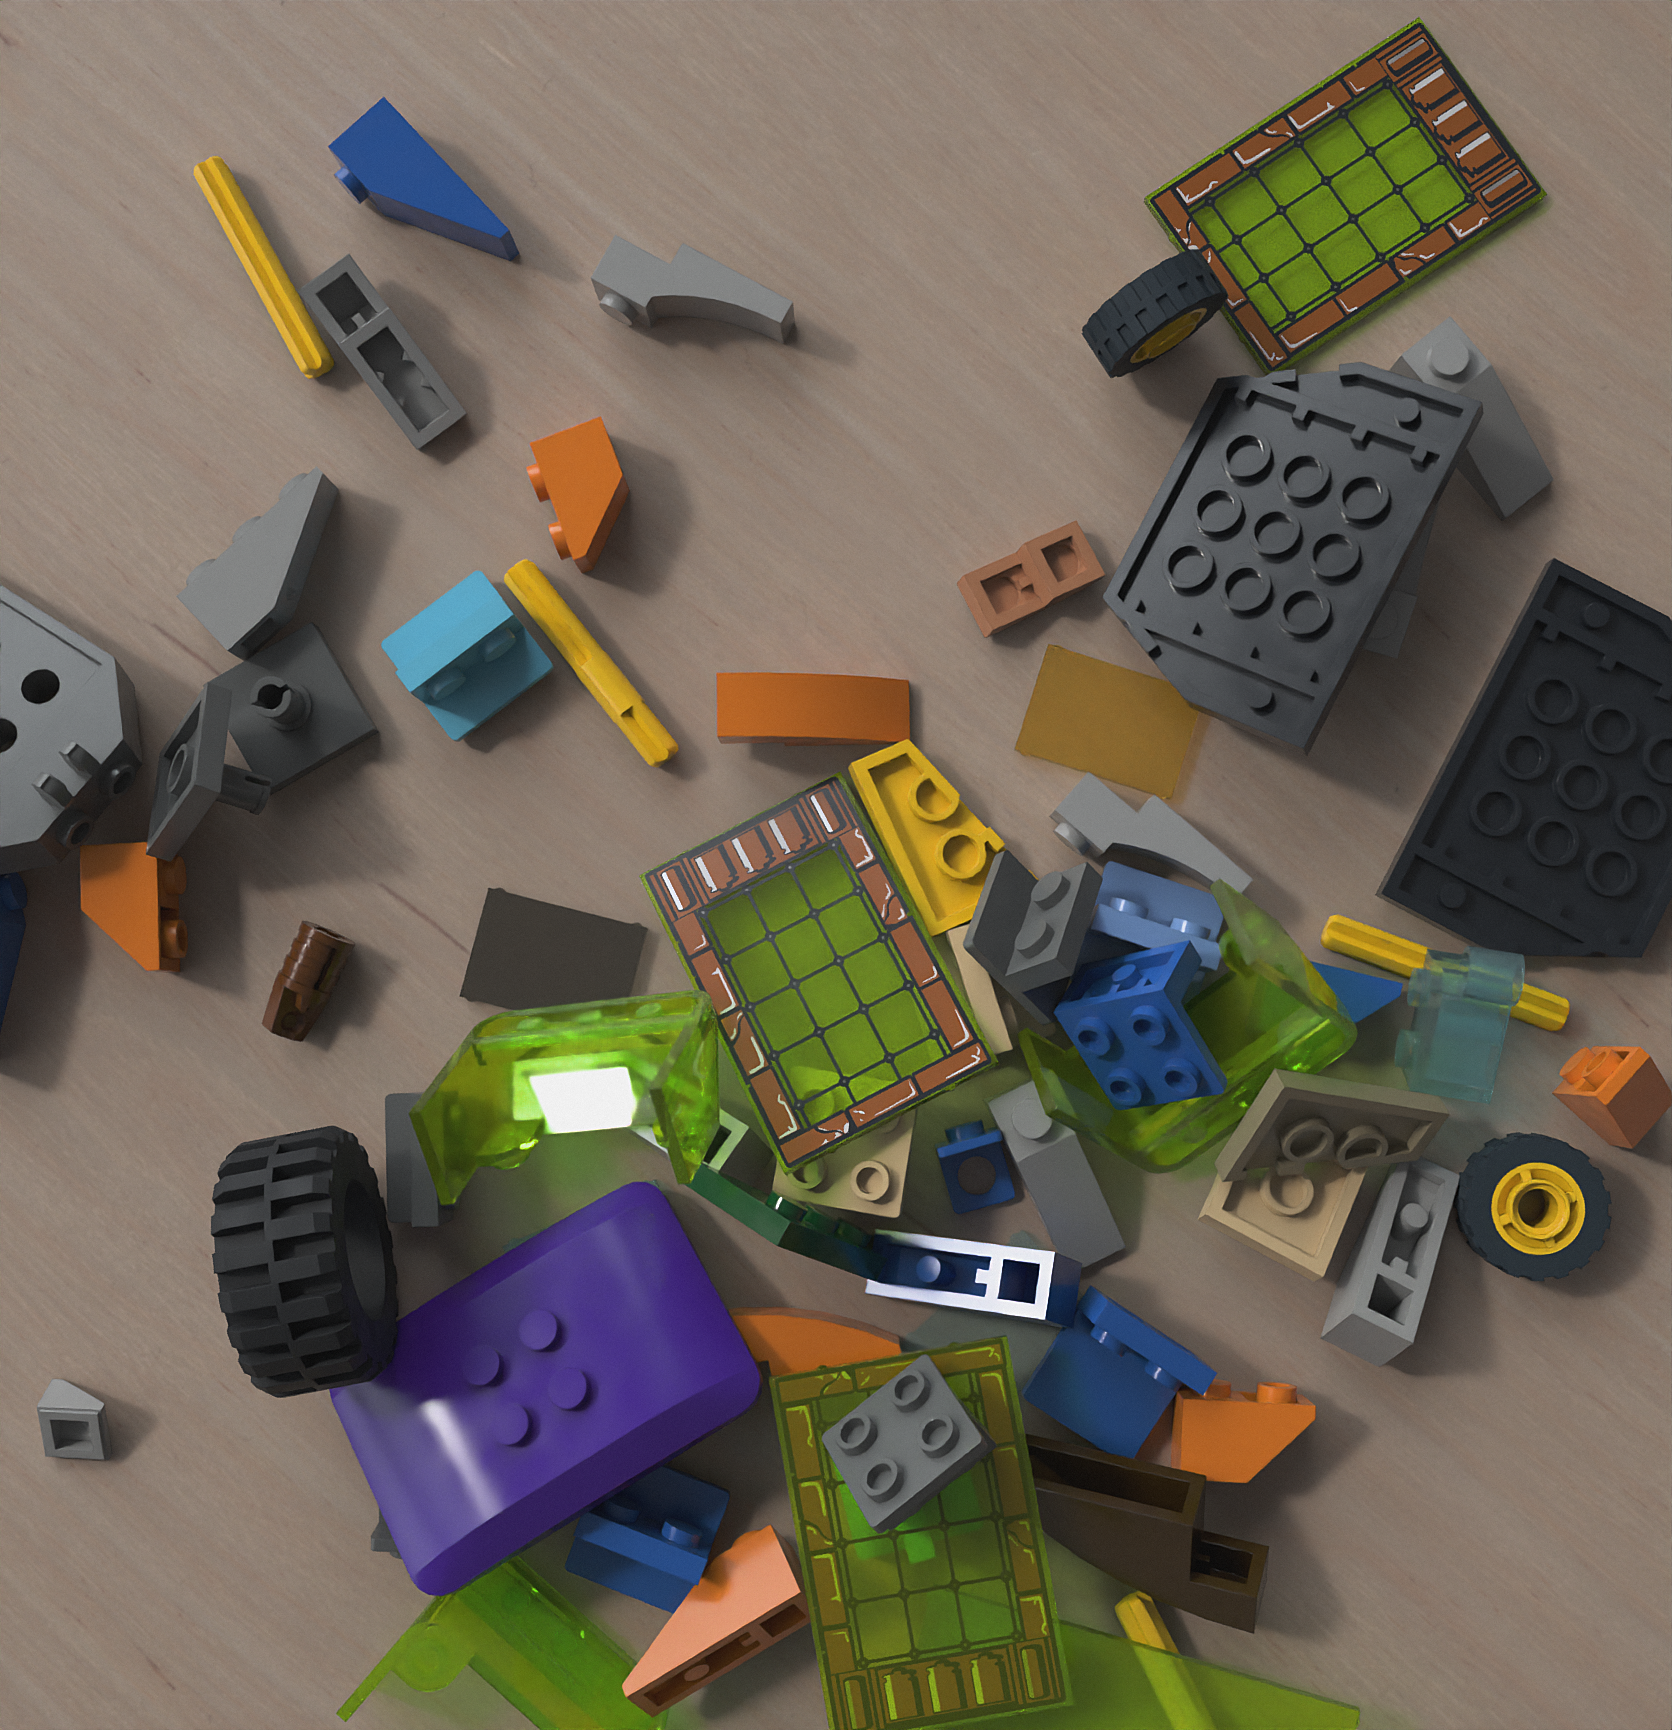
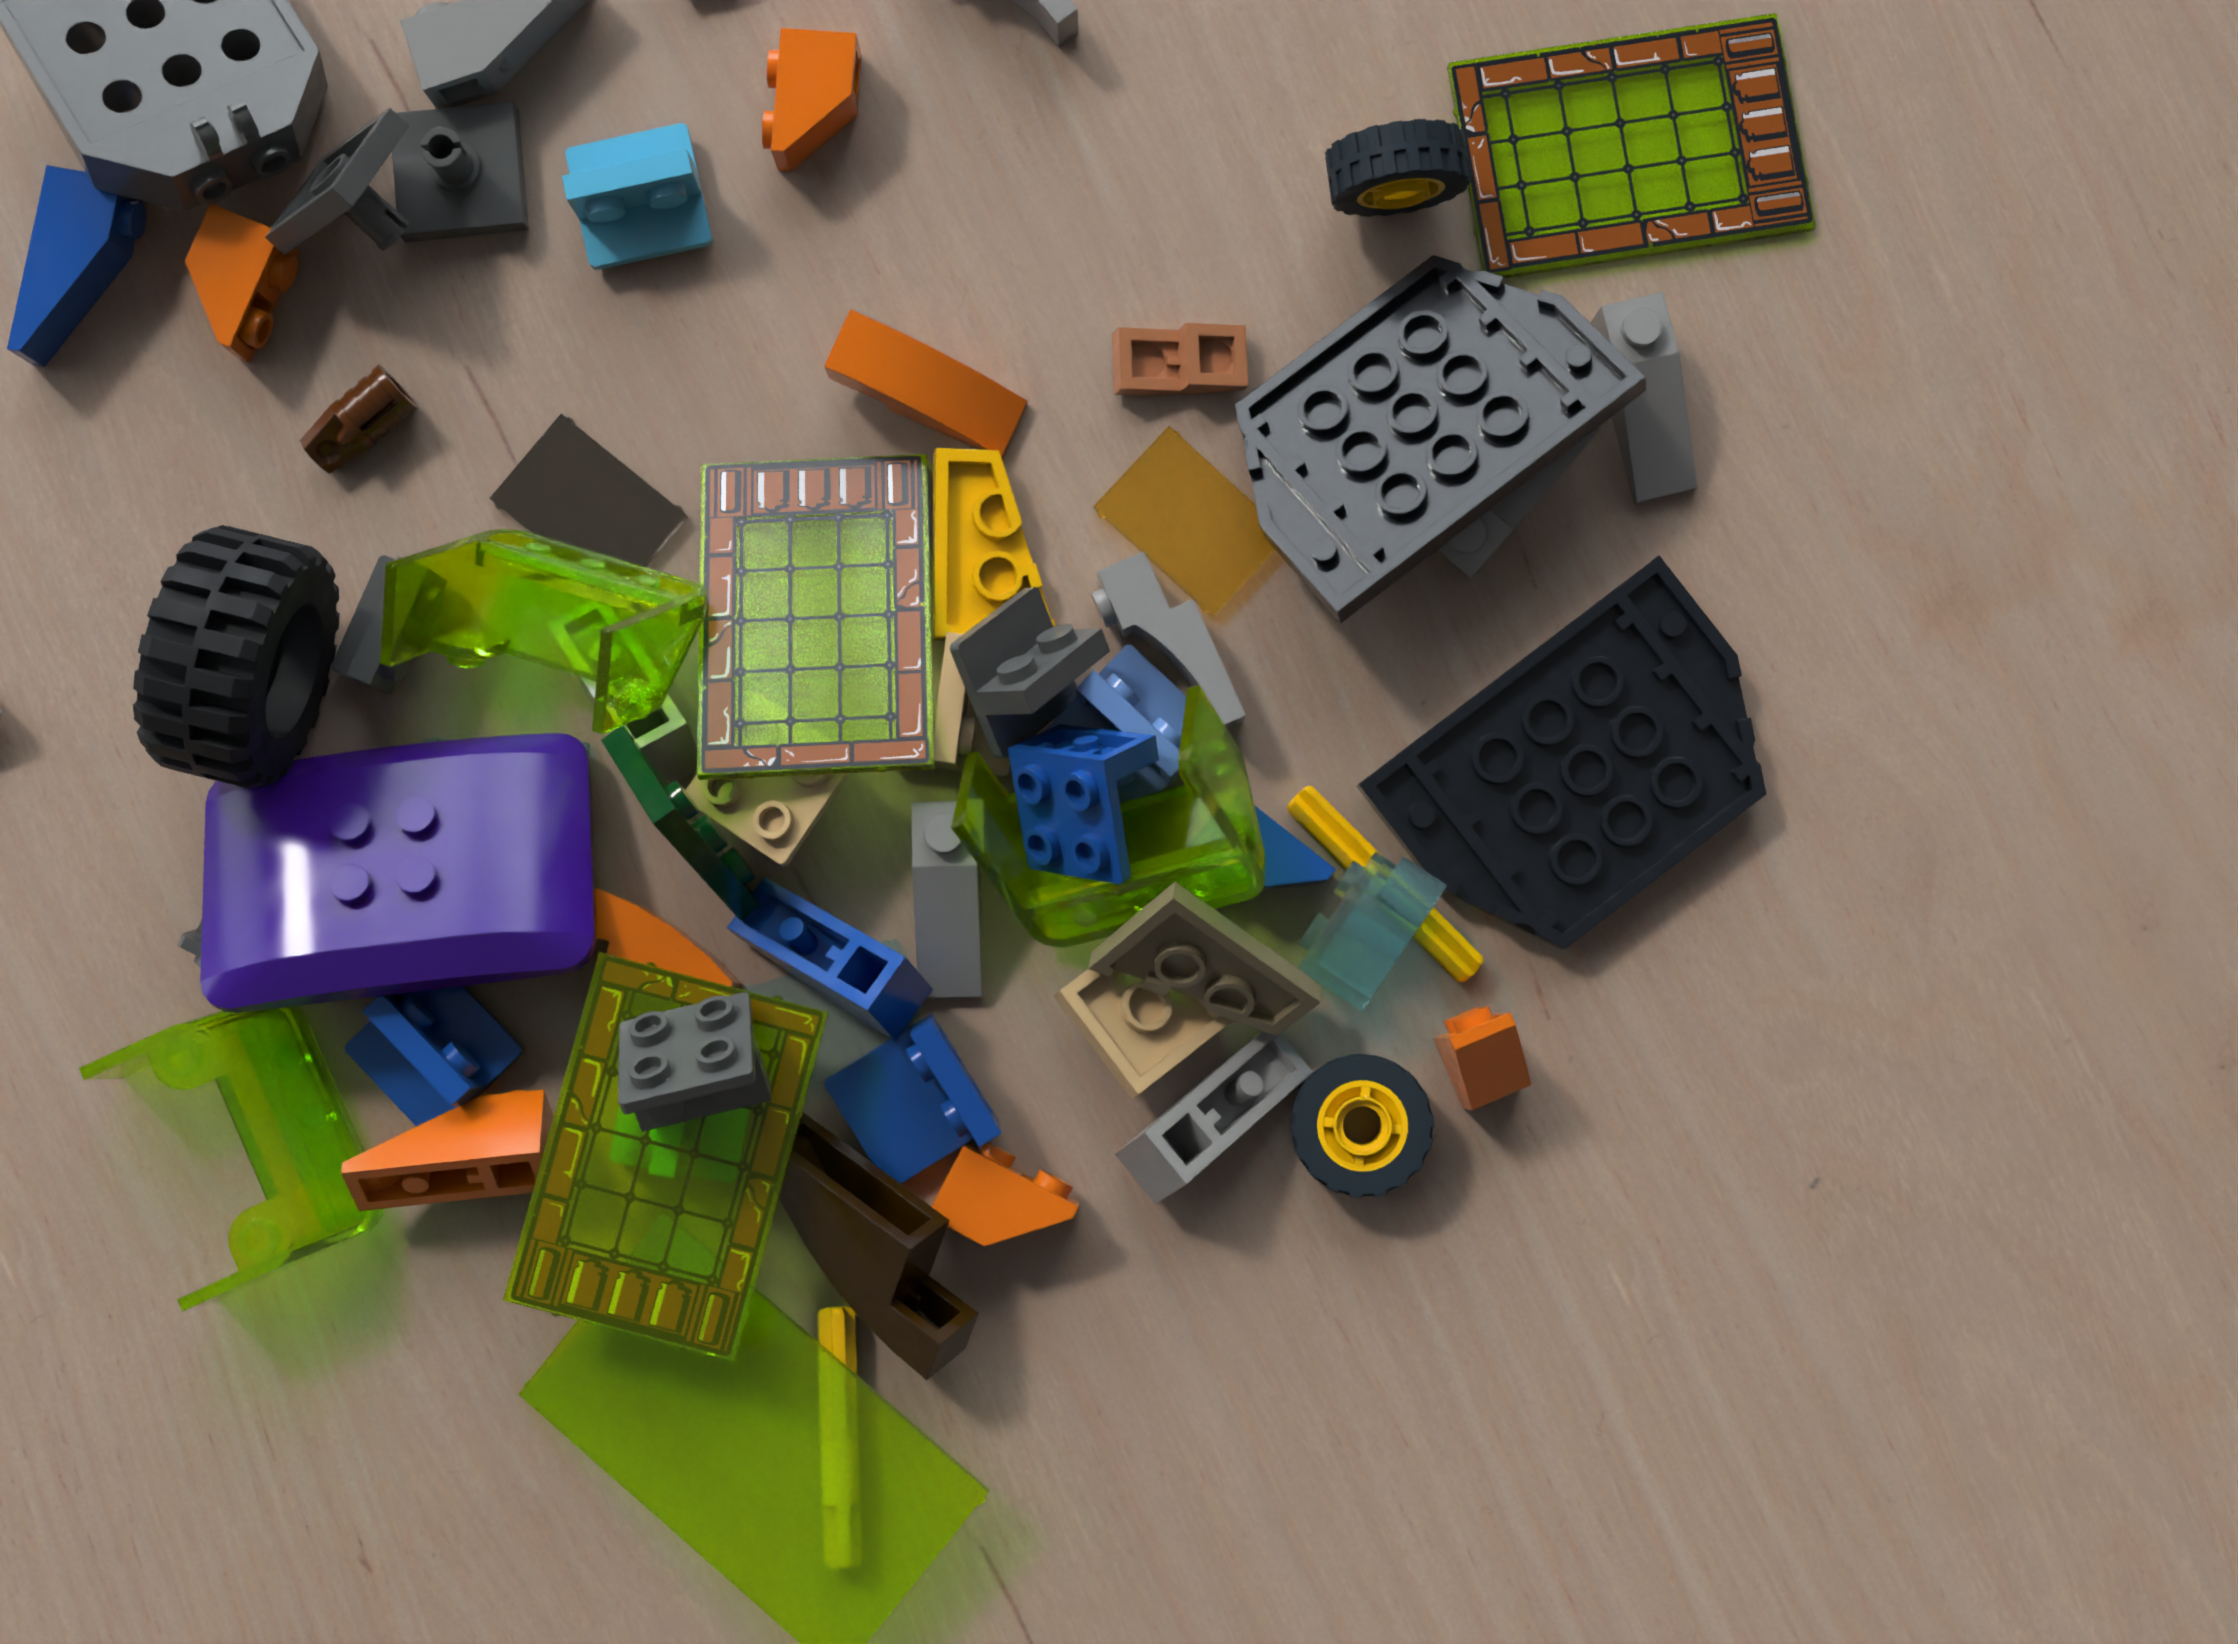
camera: 10 degrees right, 0 degrees up
(591, 663) = (747, 254): yellow axle -> none
(974, 1141) = (878, 836): blue bracket -> none

